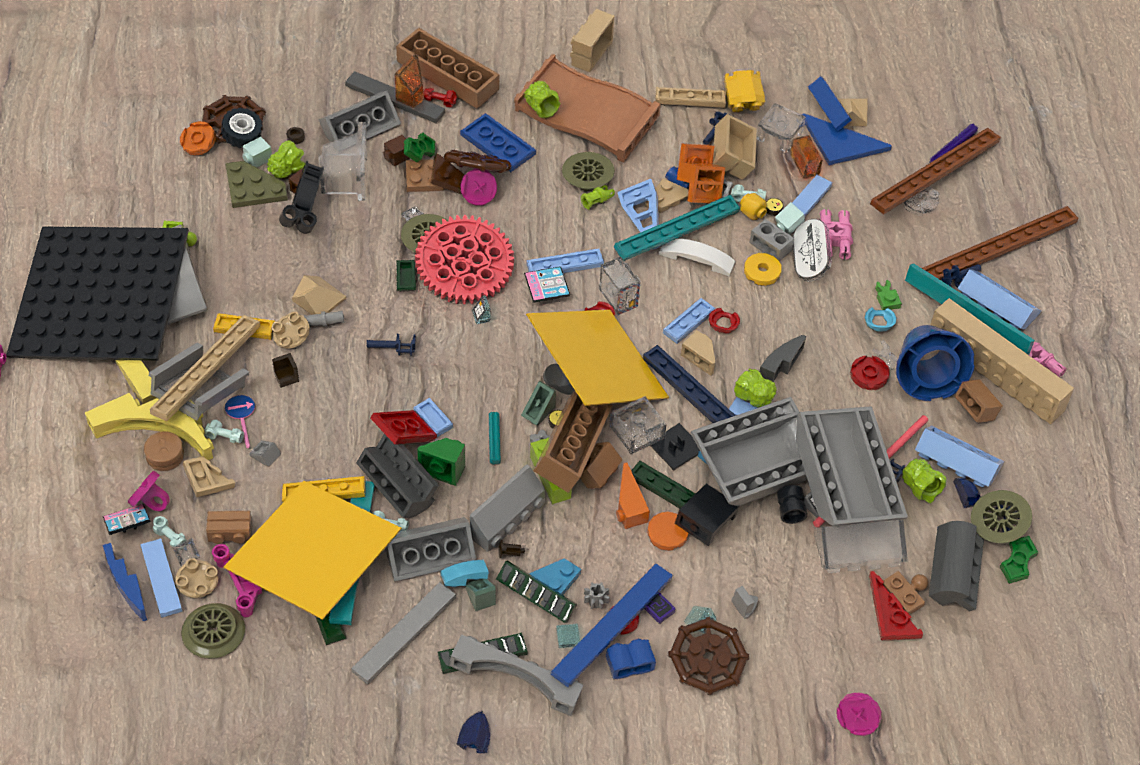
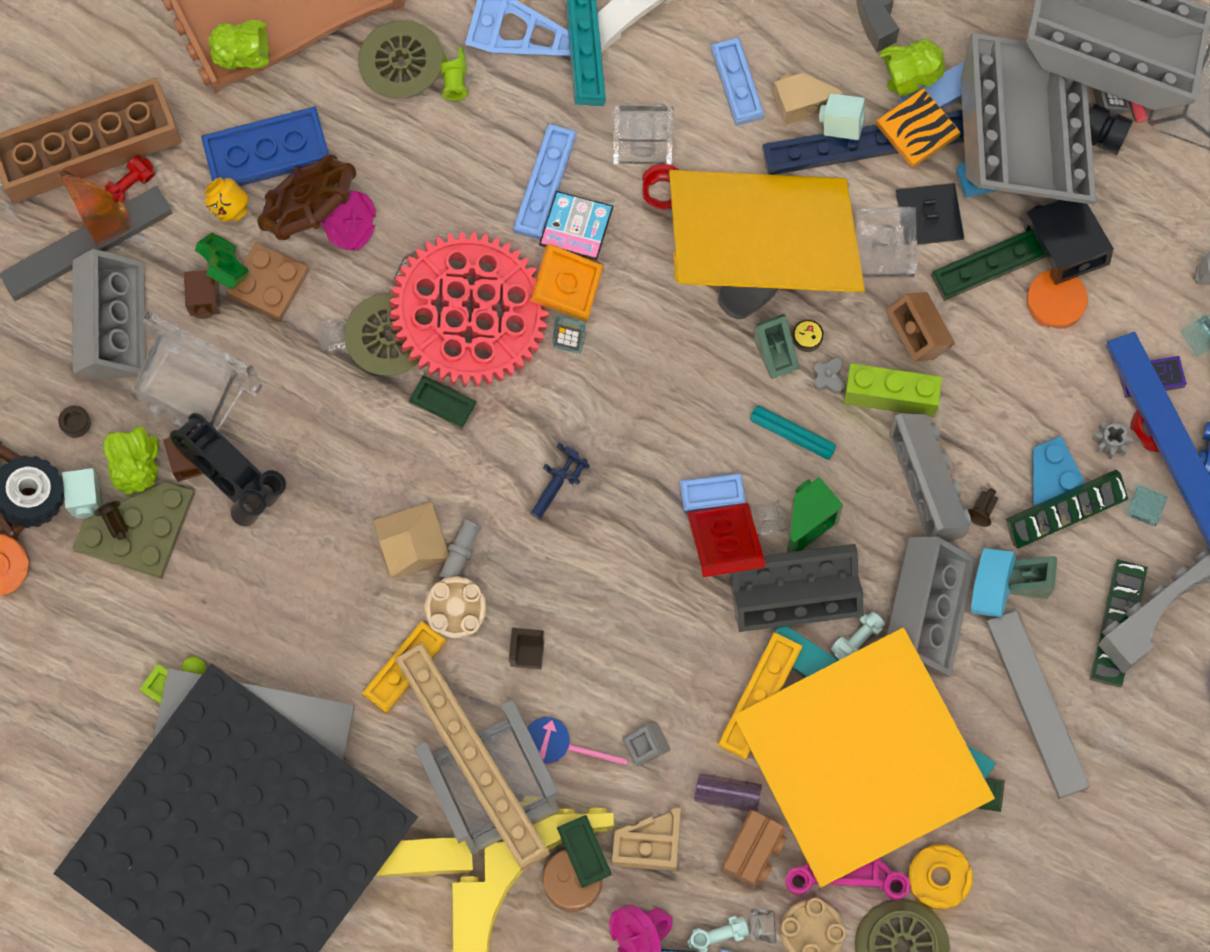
camera: 55 degrees left, 20 degrees up
(179, 440) = (584, 851): none -> dark green tile
(215, 428) = (572, 794): light aqua bar -> none
(249, 167) = (113, 519): none -> dark brown piece
(256, 500) = (727, 792): none -> clear purple axle
(269, 640) = (953, 863): none -> yellow tile
(446, 175) = (298, 253): reddish brown wing -> none
(455, 135) = (226, 199): none -> yellow head
(510, 295) = (566, 282): none -> light orange tile
(571, 442) = (886, 342): medium nougat brick -> none
(632, 506) = (991, 318): orange slope -> none
(699, 370) = (843, 116): none -> light aqua brick
(716, 314) = (770, 25): red piece -> none
(719, 406) = (917, 128): none -> light orange tile

